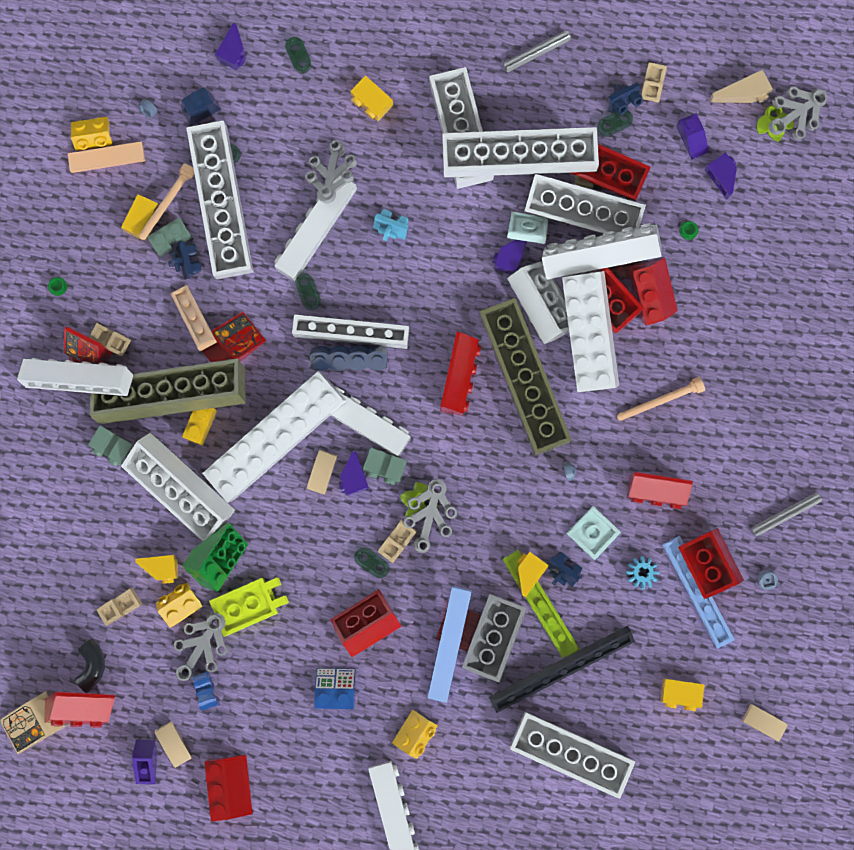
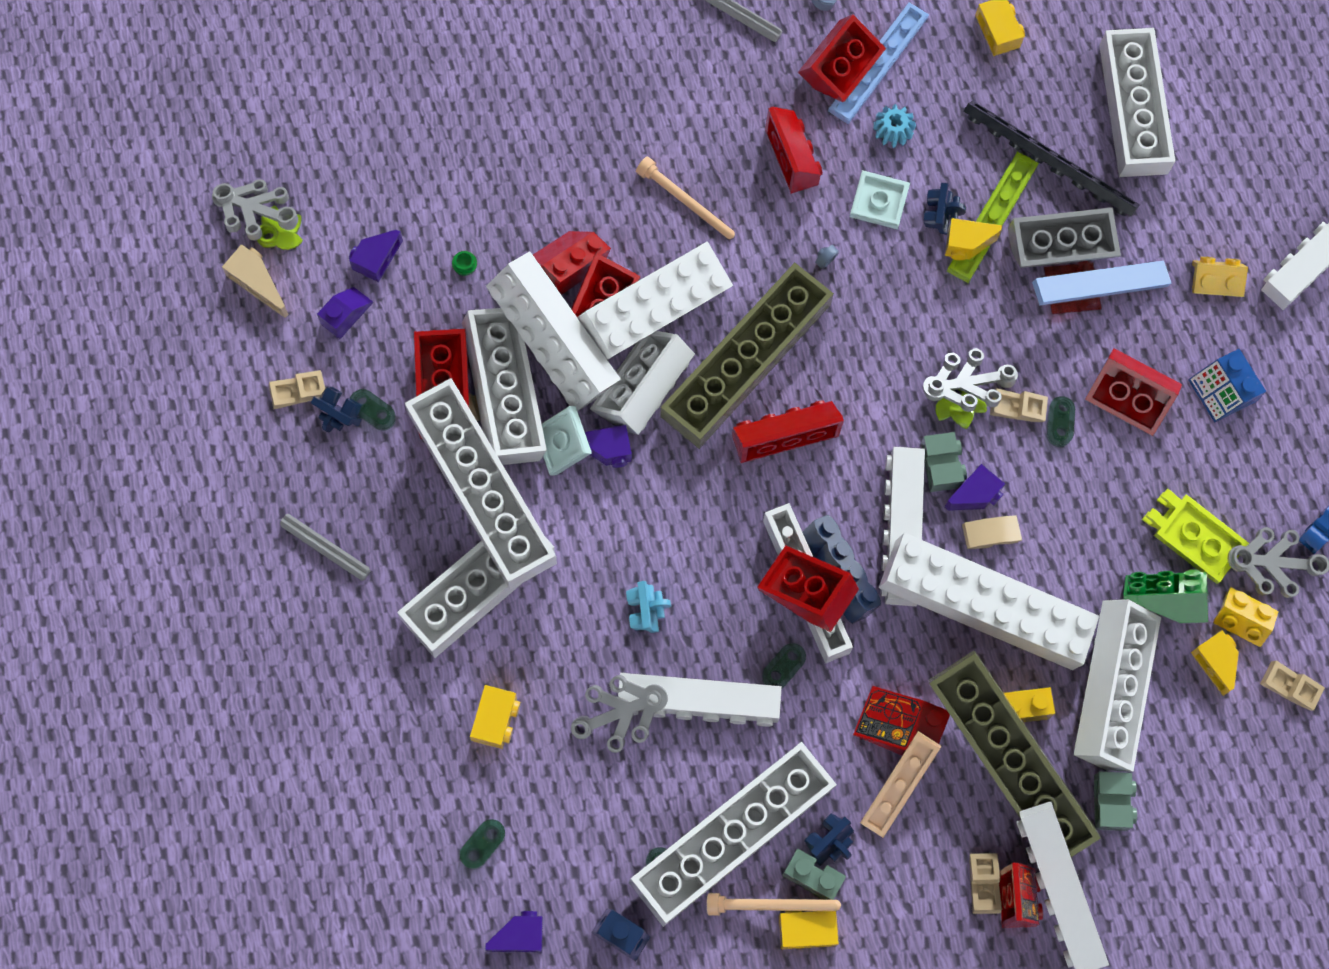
camera: 125 degrees left, 10 degrees down
(342, 323) = (809, 587): none -> red slope

